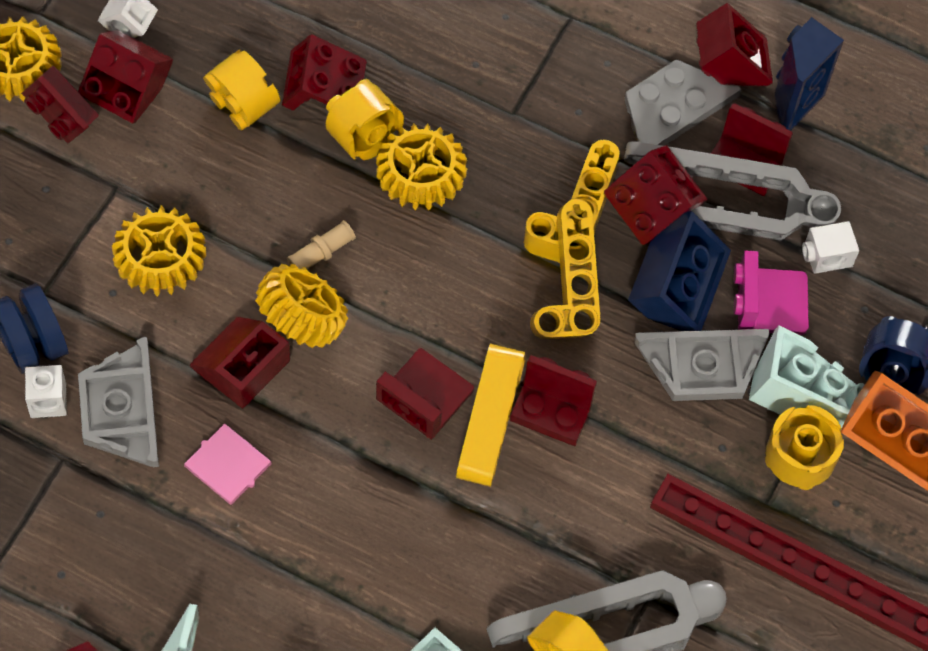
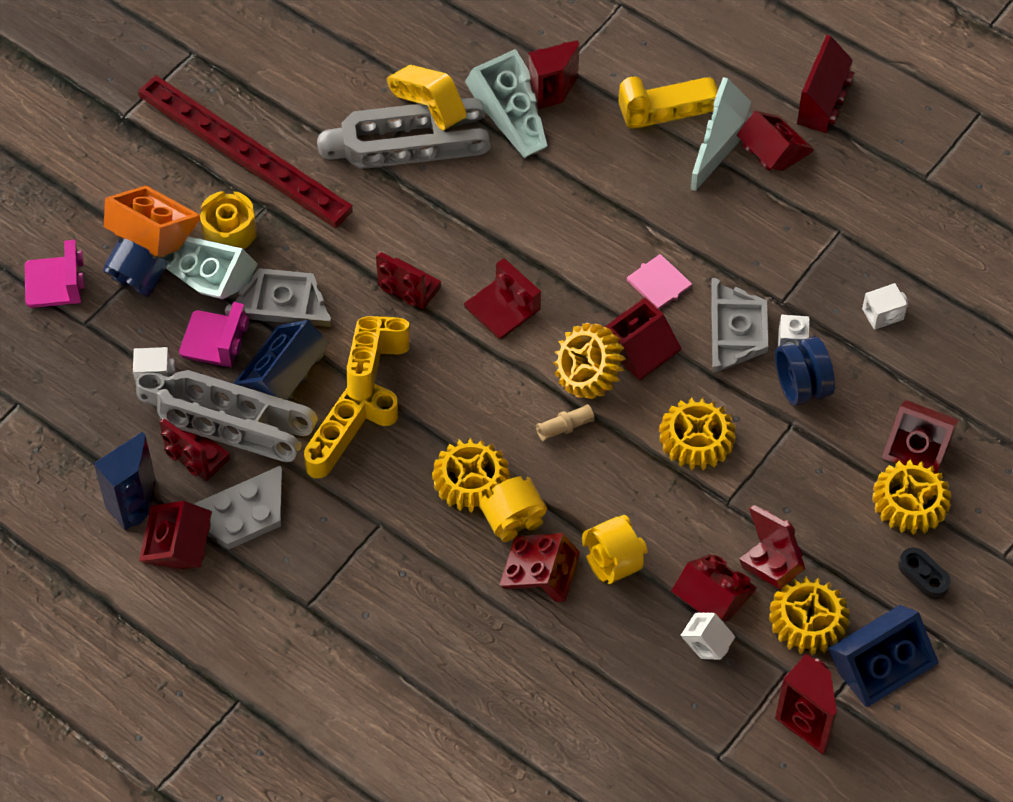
camera: 165 degrees left, 5 degrees down
(490, 414) = (452, 278): yellow beam -> none
(654, 194) = (277, 395): dark red bracket -> none

